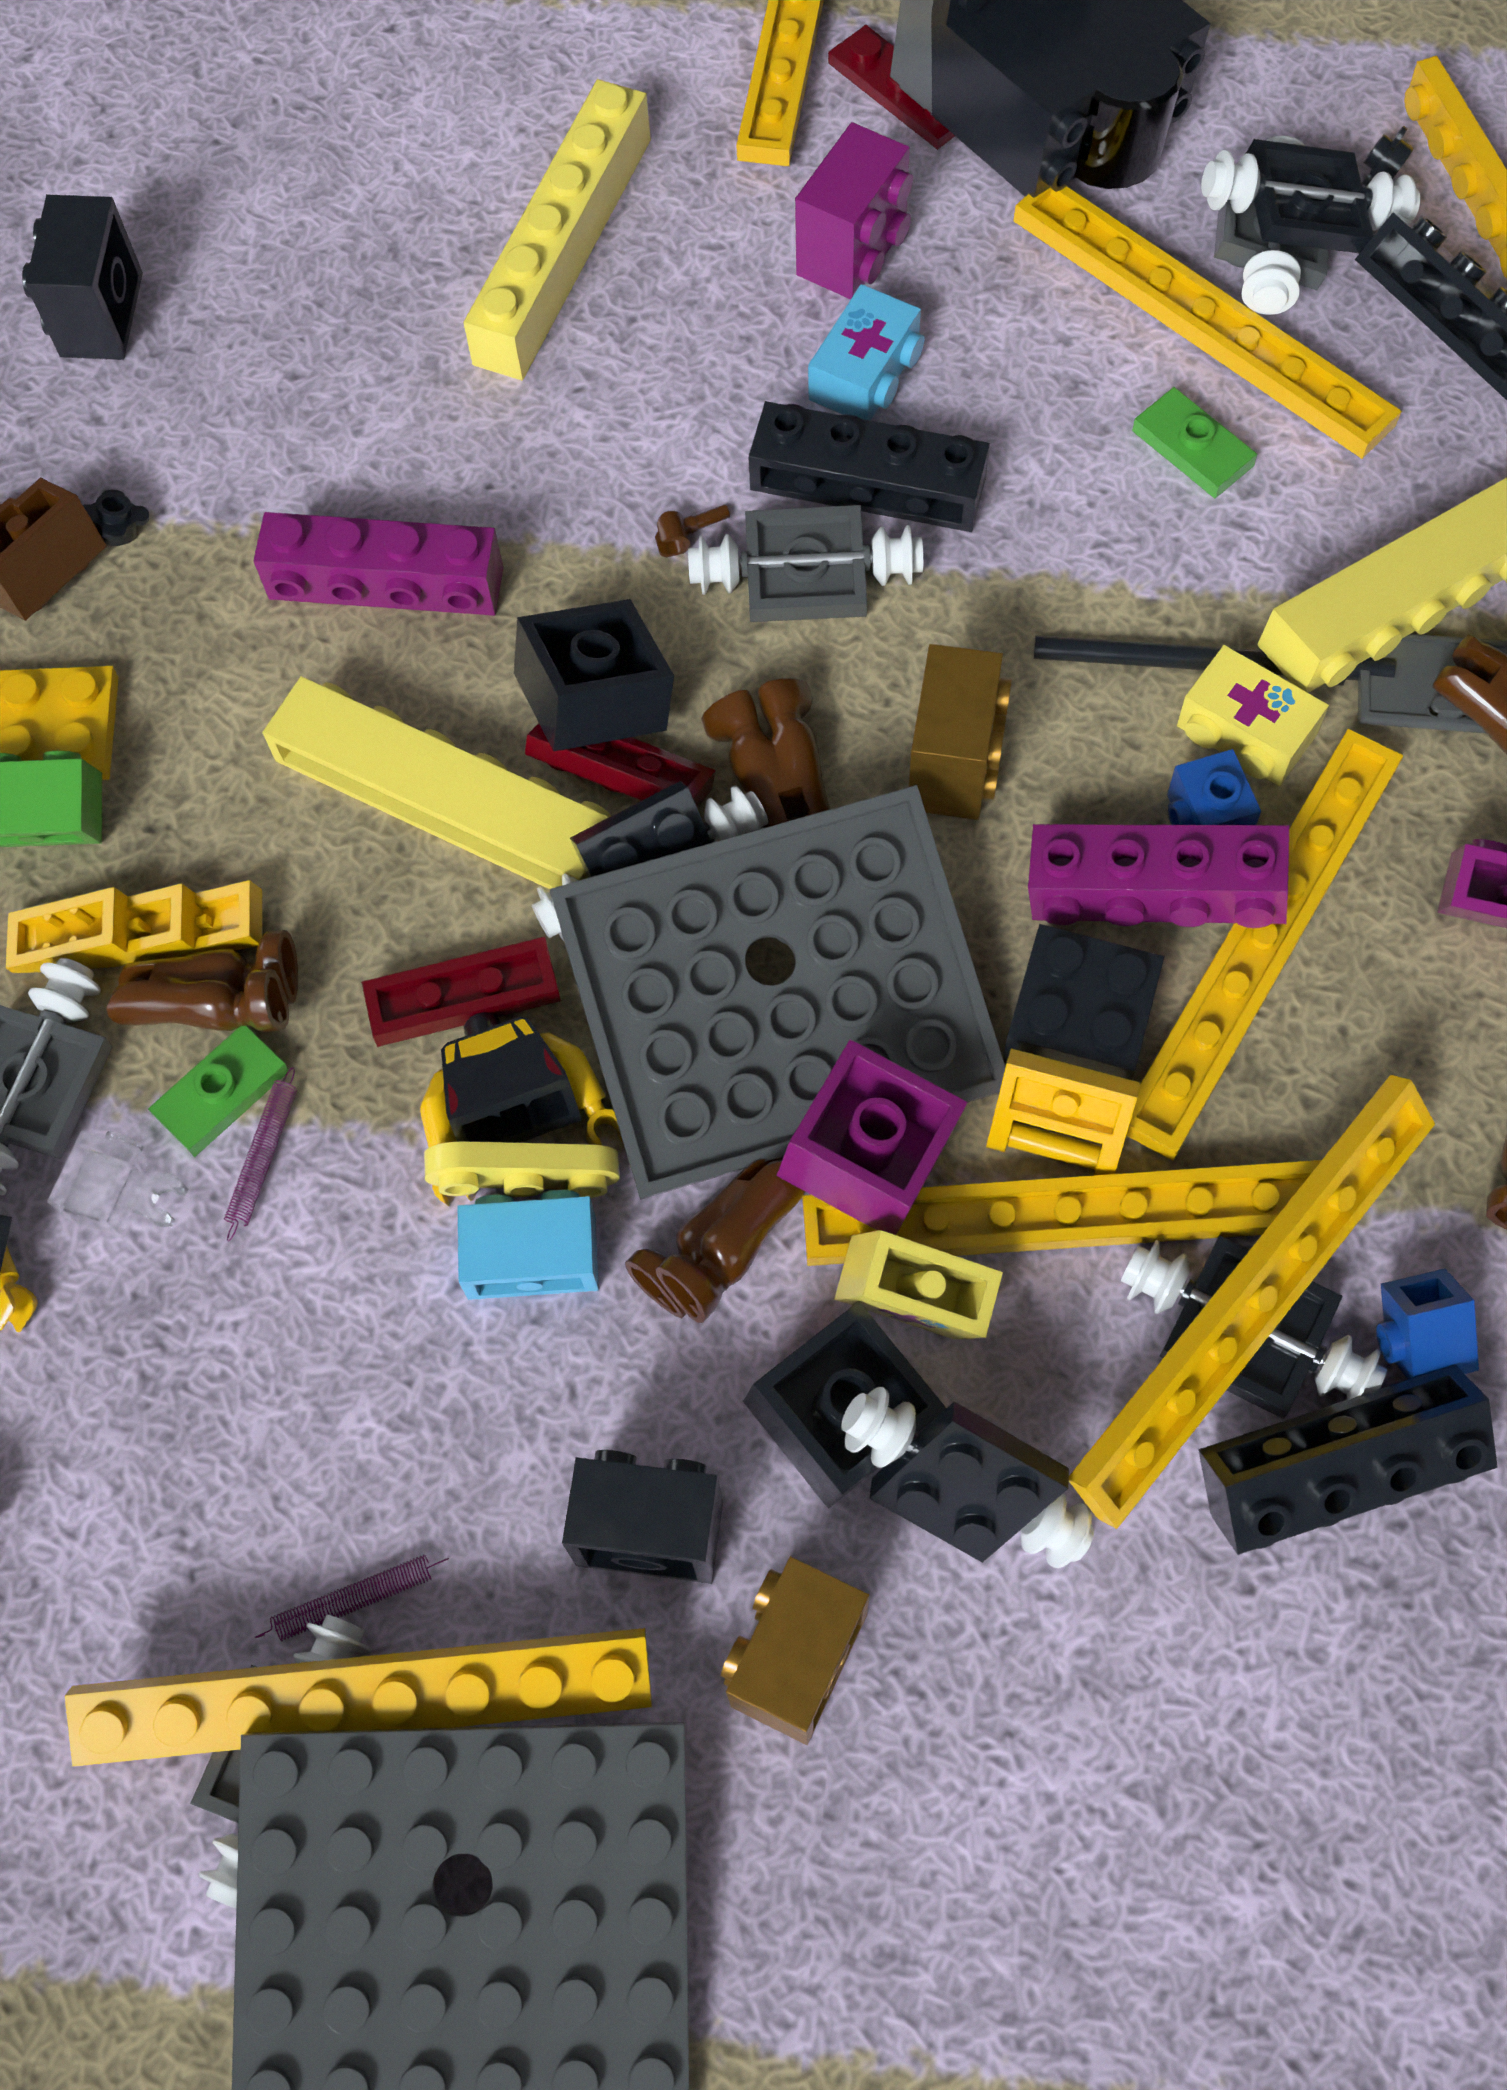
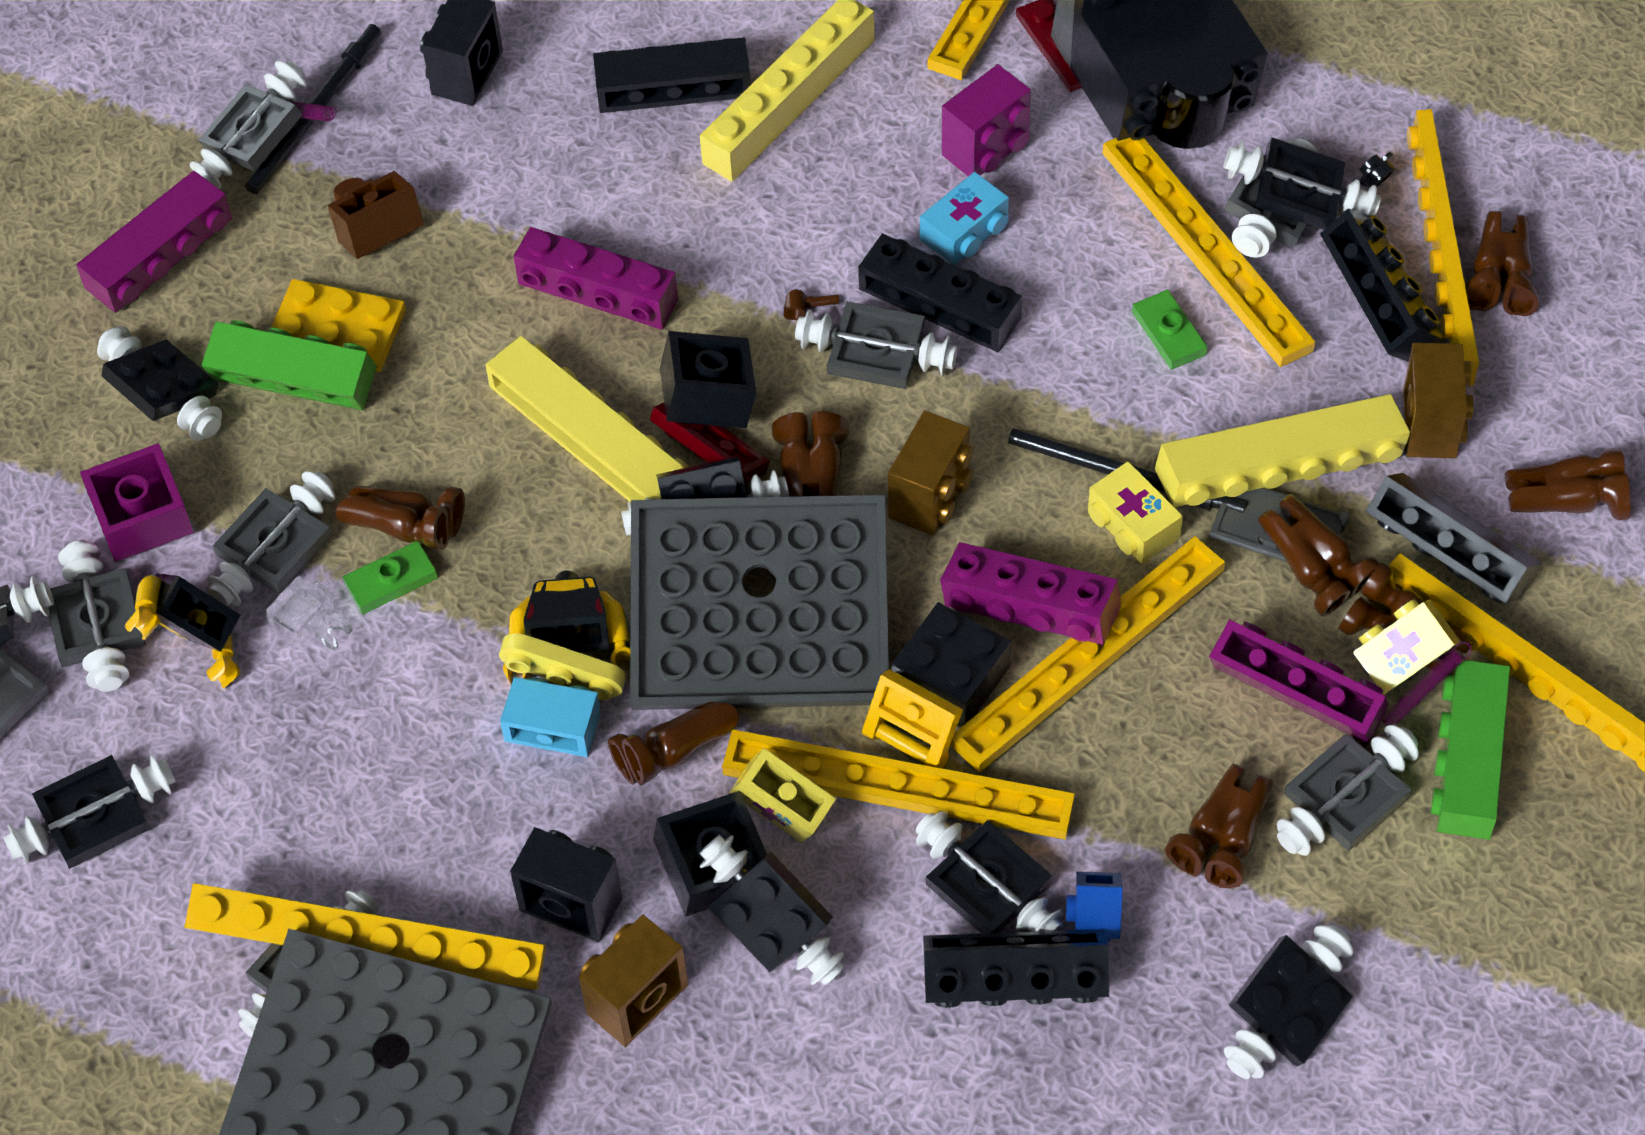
camera: 15 degrees right, 10 degrees down
(117, 517) = (436, 207): black plate -> none
(120, 929) = (353, 462): yellow slope -> none
(258, 1150) = (389, 630): magenta piece -> none
(352, 1593) = (379, 883): magenta piece -> none
(389, 241) = (671, 72): none -> black brick
(456, 989) = (551, 553): dark red plate -> none
(871, 1138) = (781, 699): magenta brick -> none
(1212, 793) = (1087, 551): blue brick -> none
(1251, 1302) = (989, 855): yellow plate -> none

